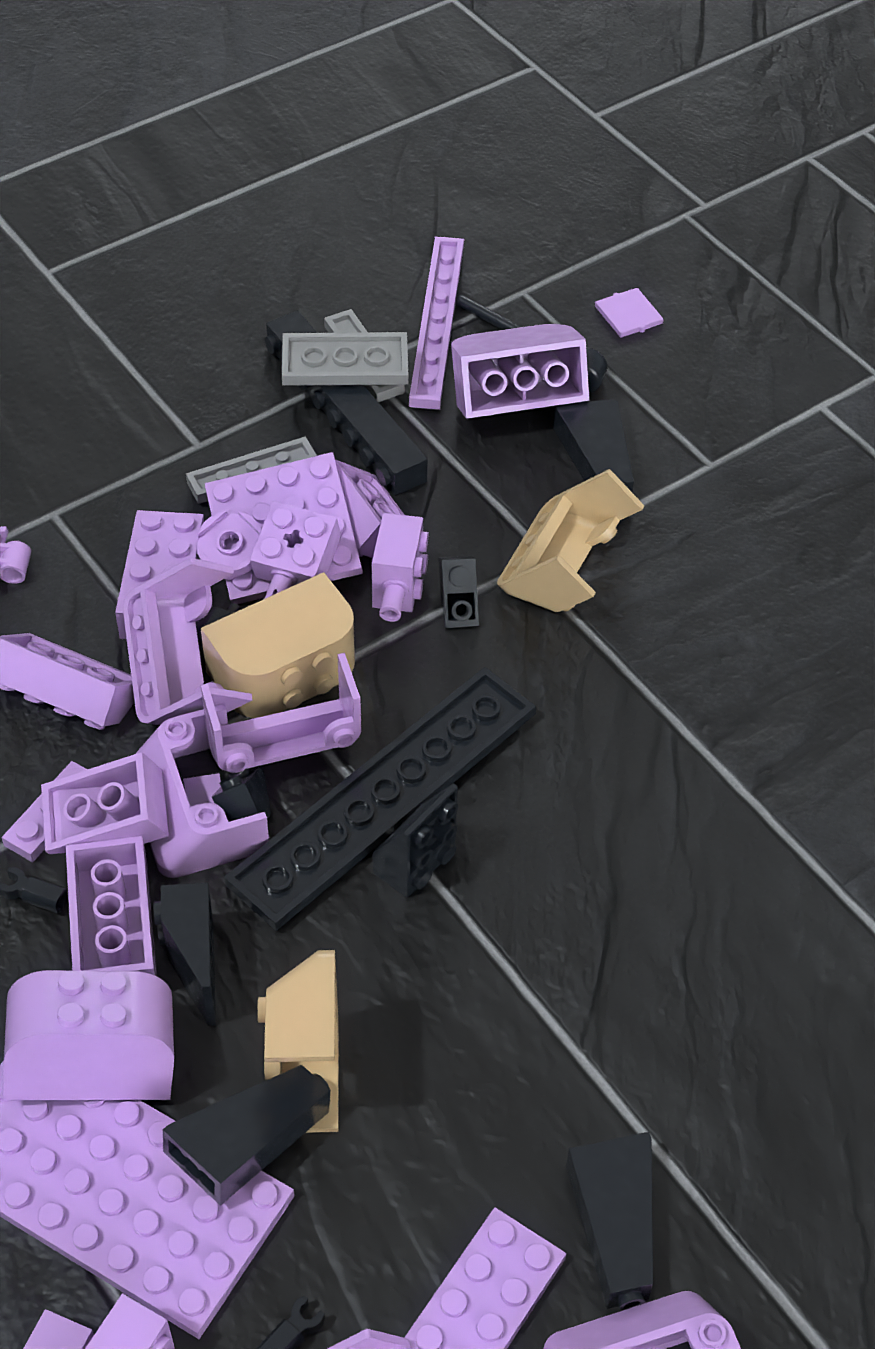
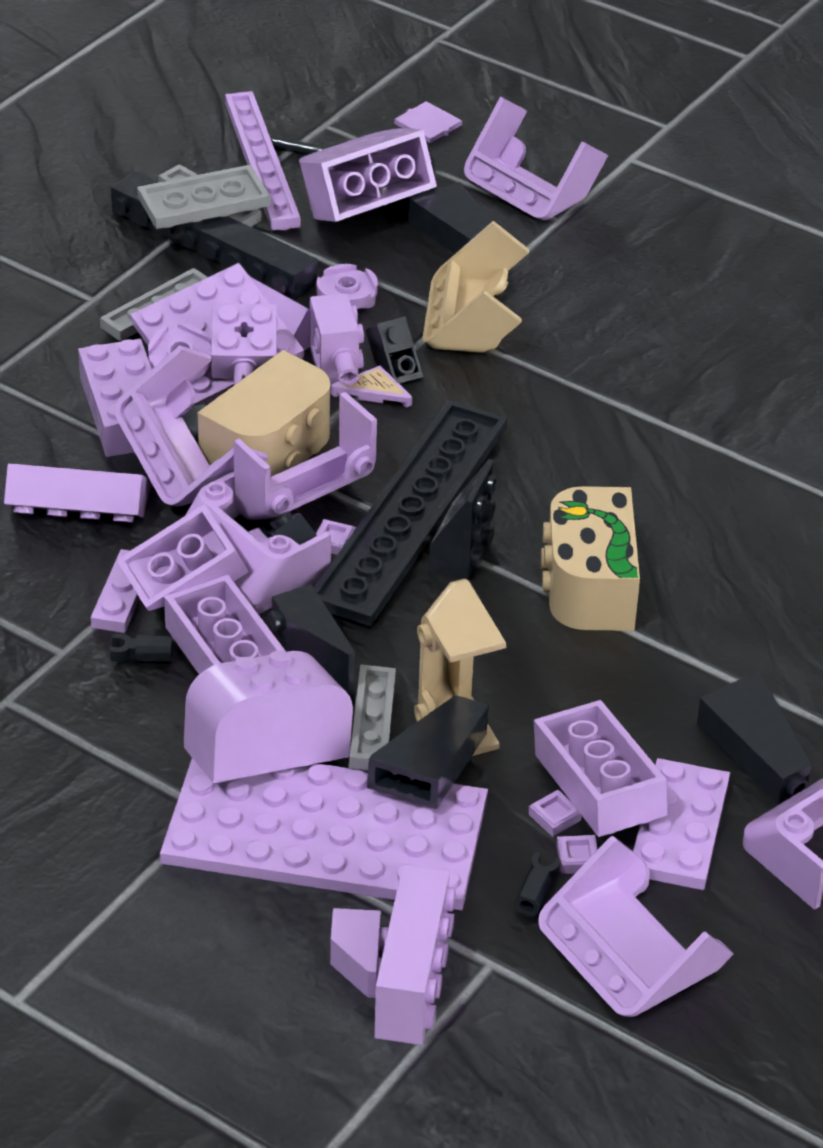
camera: 20 degrees left, 10 degrees down
(213, 1056) = (372, 713): none -> light grey plate
(291, 802) = (339, 534): none -> lavender tile
(352, 1307) = (575, 851): none -> lavender tile
(354, 1242) = (554, 813): none -> lavender tile
(413, 1214) = (600, 768): none -> lavender brick
(422, 626) = (374, 386): none -> tile
(443, 510) = (361, 286): none -> lavender plate
(536, 920) = (592, 559): none -> tan brick
(672, 394) = (497, 162): none -> lavender windscreen

